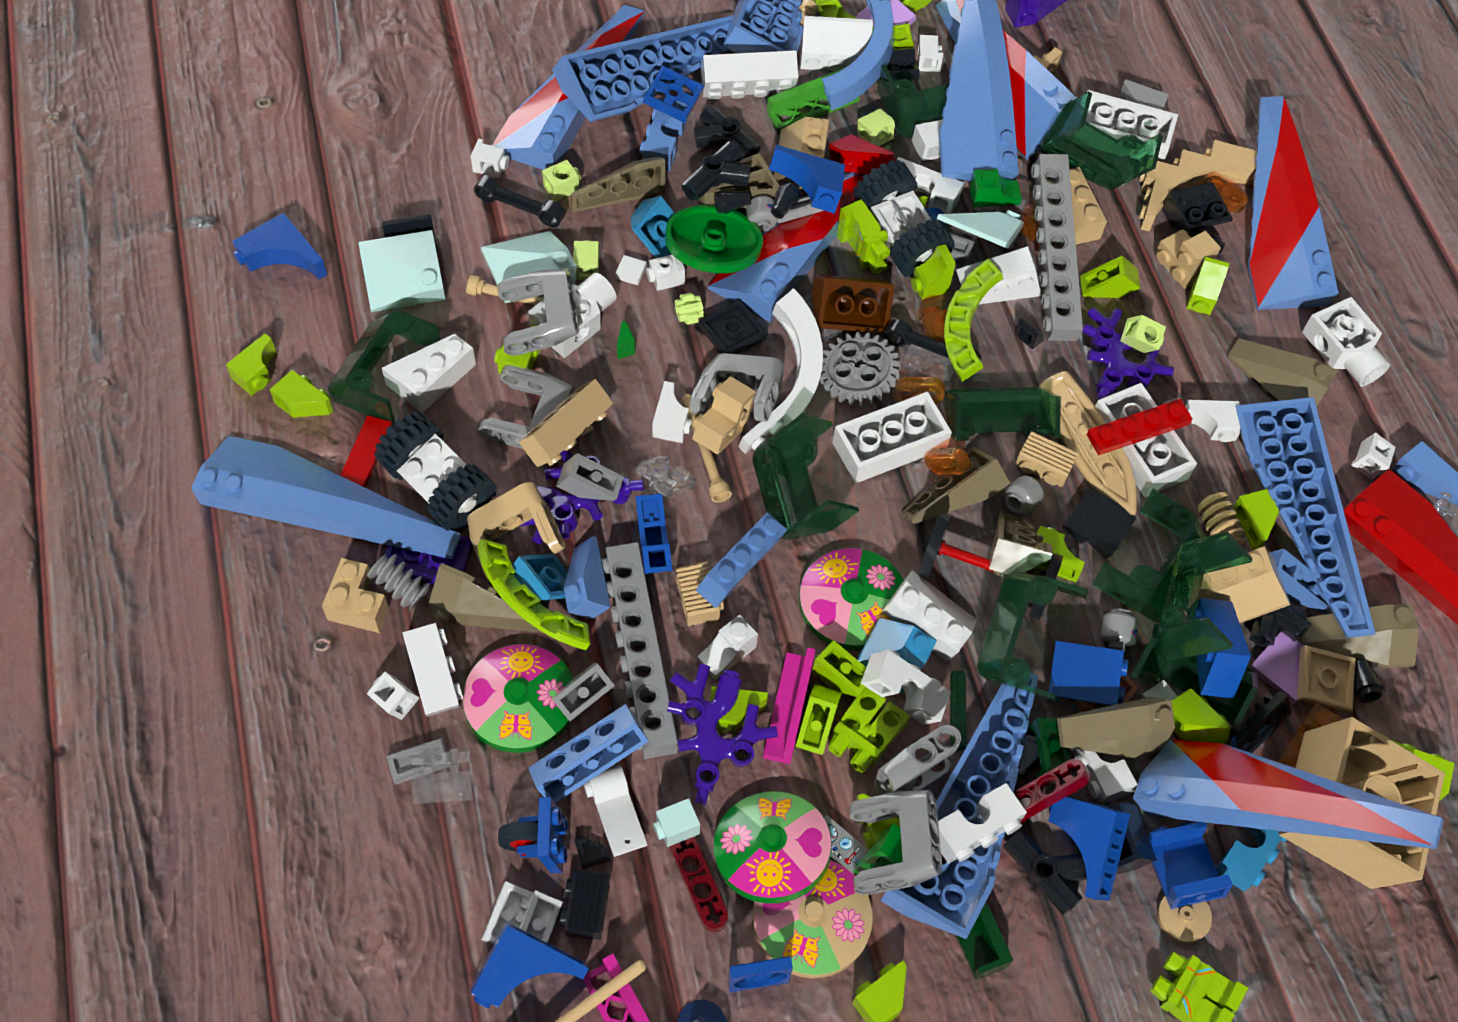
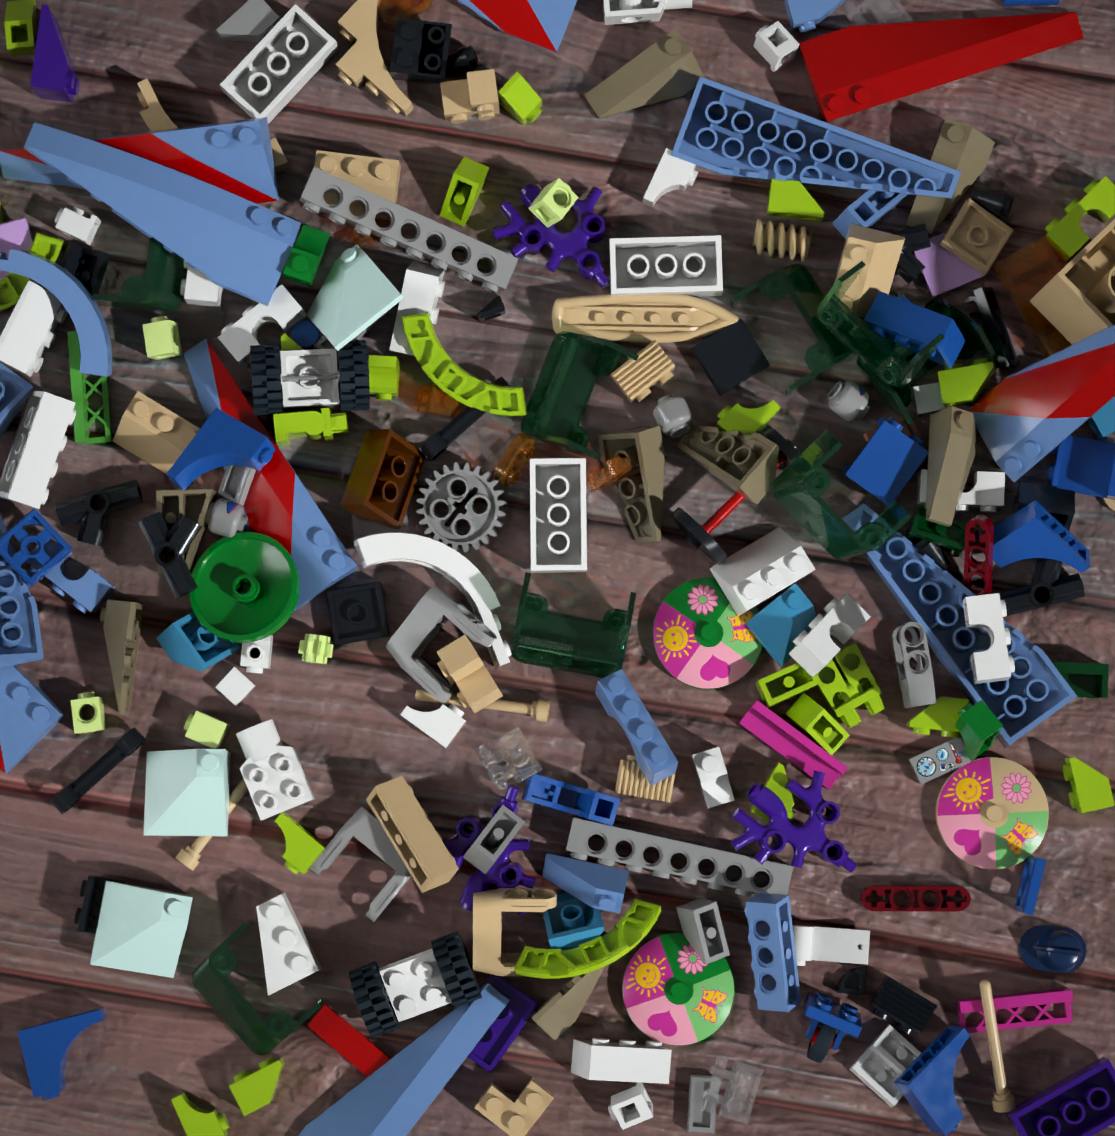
camera: 60 degrees left, 25 degrees up
(398, 581) = (517, 1058): light grey piece -> none
(489, 159) = (25, 781): white brick -> none
(559, 307) = (276, 790): light grey connector -> none
(625, 342) = (330, 731): green slope -> none
(676, 823) = (868, 899): light aqua brick -> none
(731, 200) = (206, 548): black cone -> none
(772, 847) = (919, 821): dish -> none
(785, 199) = (228, 490): black cone -> none
(858, 154) = (198, 382): red slope -> none
(918, 838) = (985, 702): light grey connector -> none
(958, 706) = (860, 591): clear green axle -> none
(1100, 156) = (312, 118): clear green windscreen -> none
(1139, 427) = (660, 270): red plate -> none

